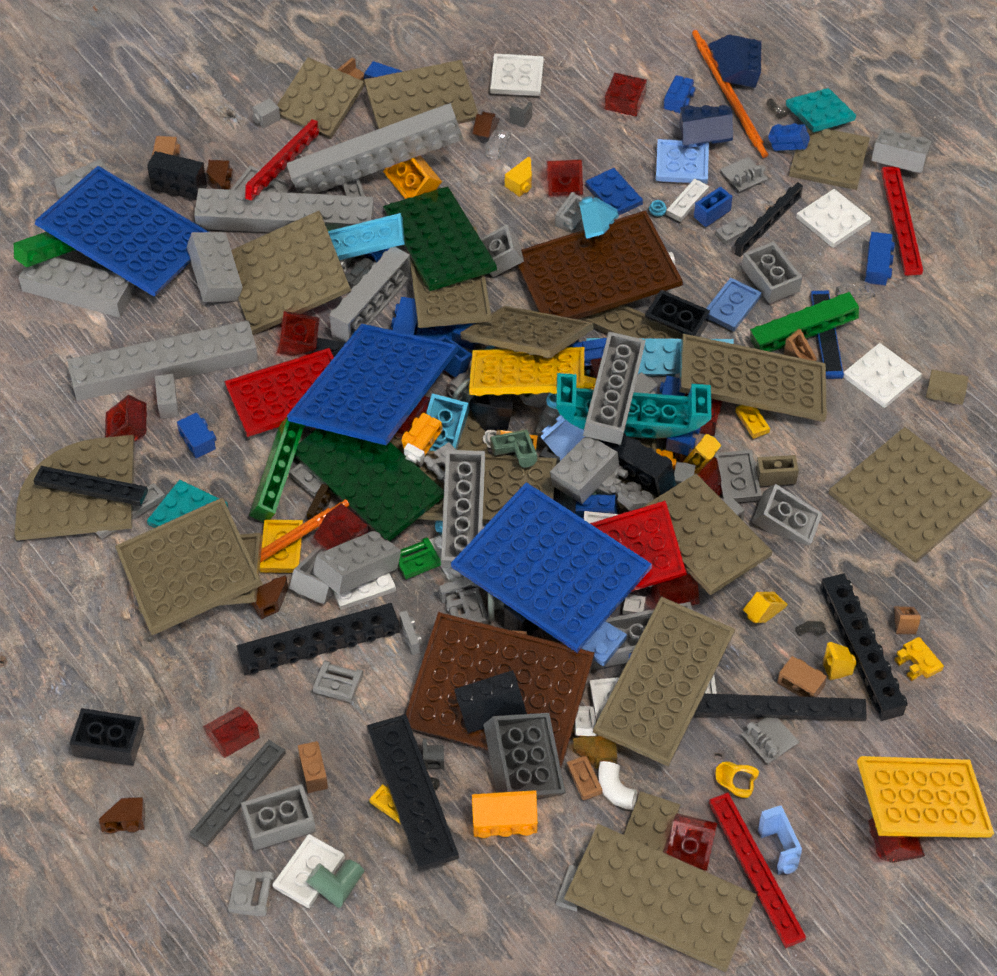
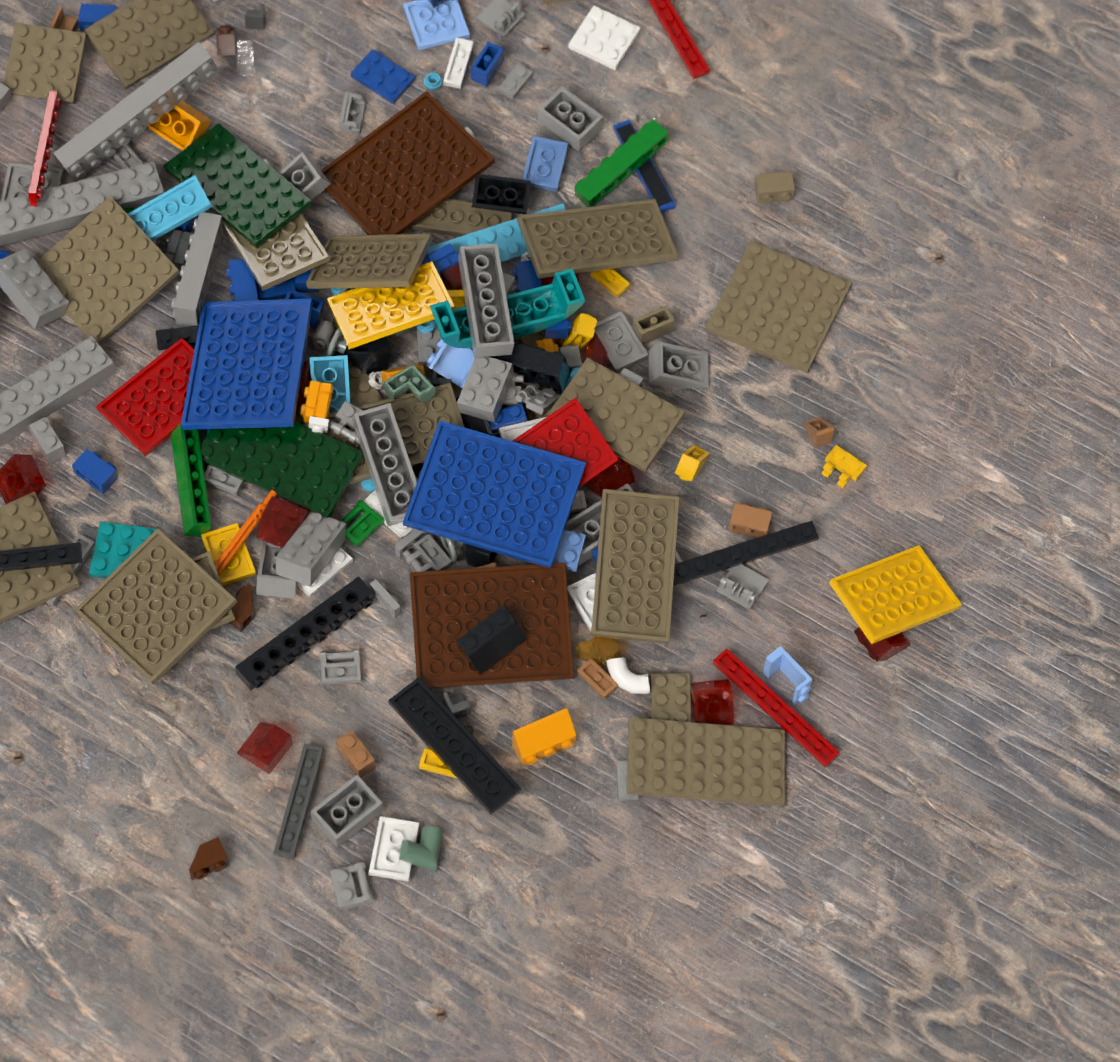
camera: 25 degrees left, 10 degrees up
(107, 736) = (157, 793): black brick -> none
(297, 334) = (144, 333): clear red slope -> none
(321, 499) = (245, 494): dark brown plate -> none
(519, 178) = (286, 90): yellow slope -> none
(524, 754) = (539, 678): dark grey slope -> none
(564, 177) = (328, 75): clear red slope -> none
(585, 721) = (579, 628): white plate -> none
(596, 216) = (383, 114): medium azure wedge -> none
(725, 773) = (718, 632): yellow piece -> none
(771, 216) = (541, 65): black plate -> none
(797, 346) = (625, 191): medium nougat slope -> none
(818, 626) = (739, 466): clear smoke arm -> none
(838, 661) = (776, 493): yellow slope -> none
(879, 258) = (664, 69): blue brick -> none
(882, 375) = (710, 193): white plate -> none
(885, 706) = (779, 466): black brick -> none

